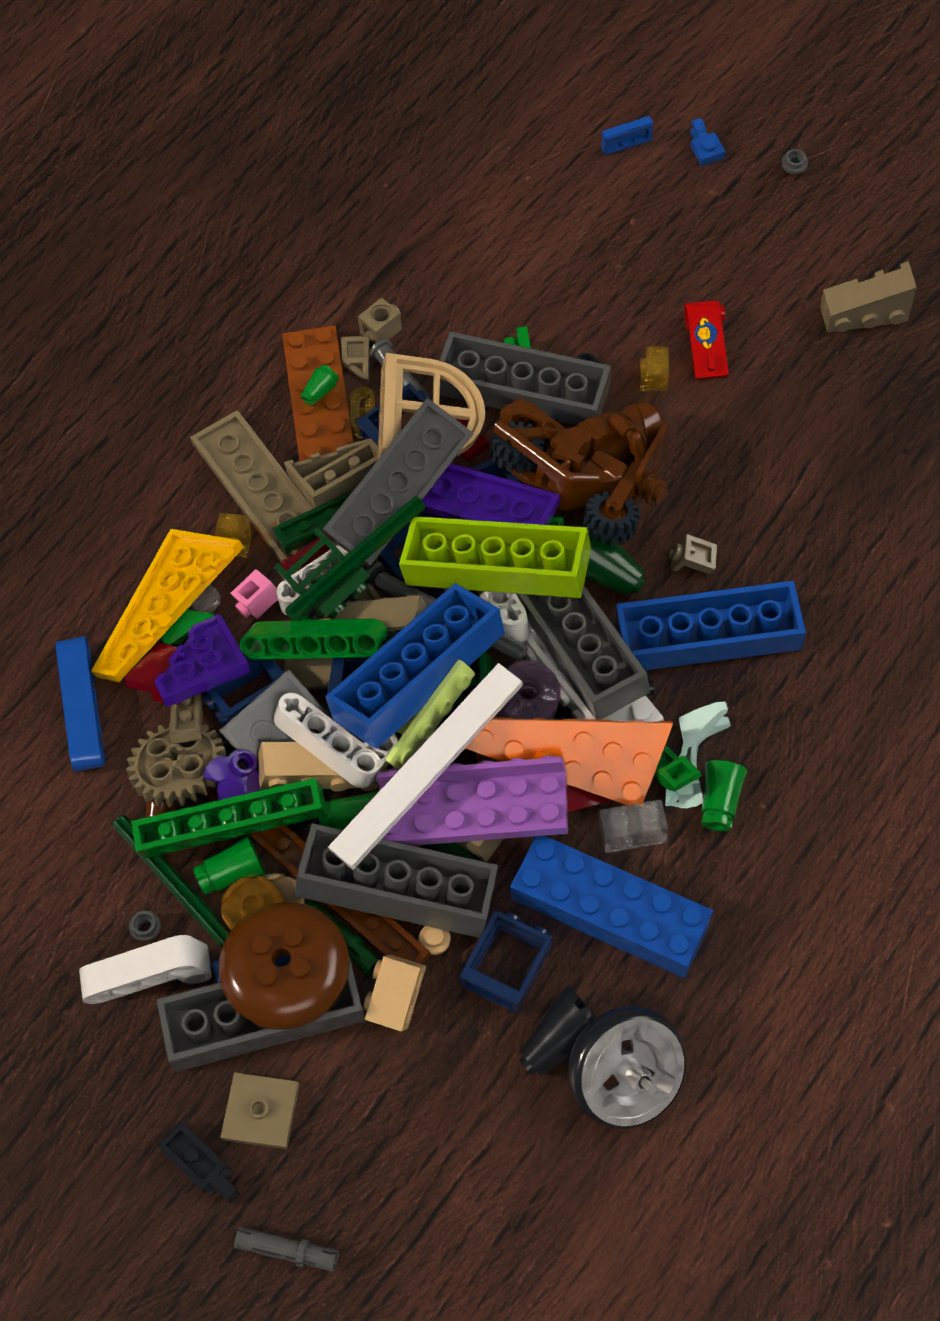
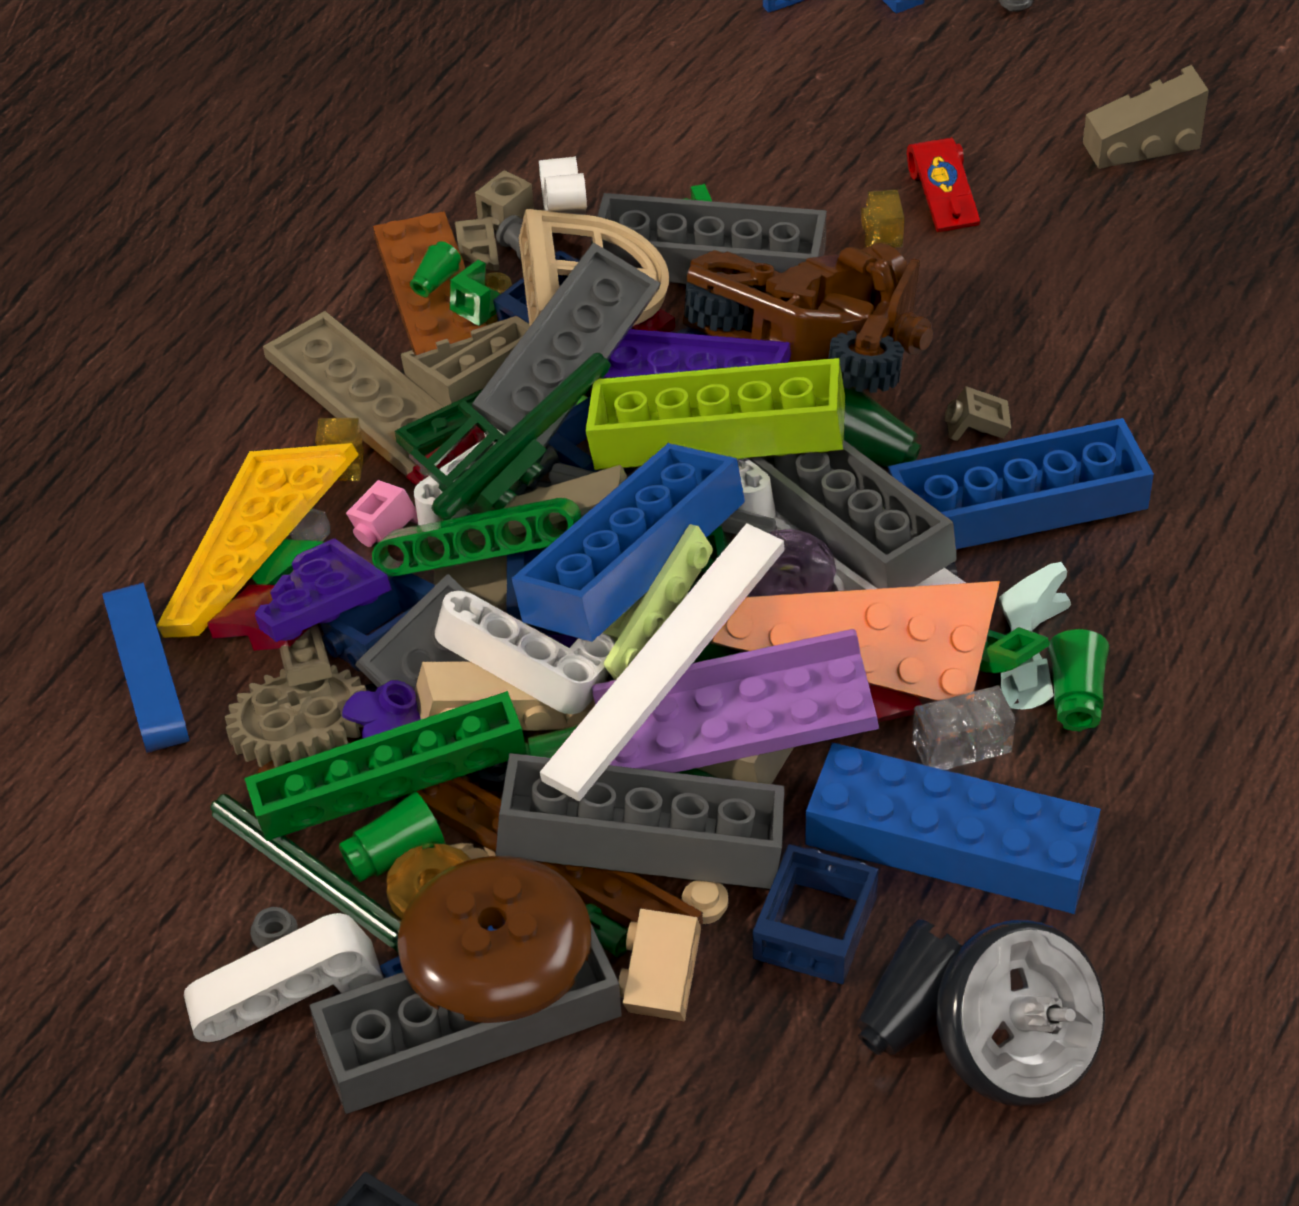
camera: 10 degrees left, 15 degrees down
(260, 1111) = (481, 1150): dark tan plate -> none
(344, 411) = (471, 296): none -> green panel
(419, 333) = (562, 186): none -> white beam

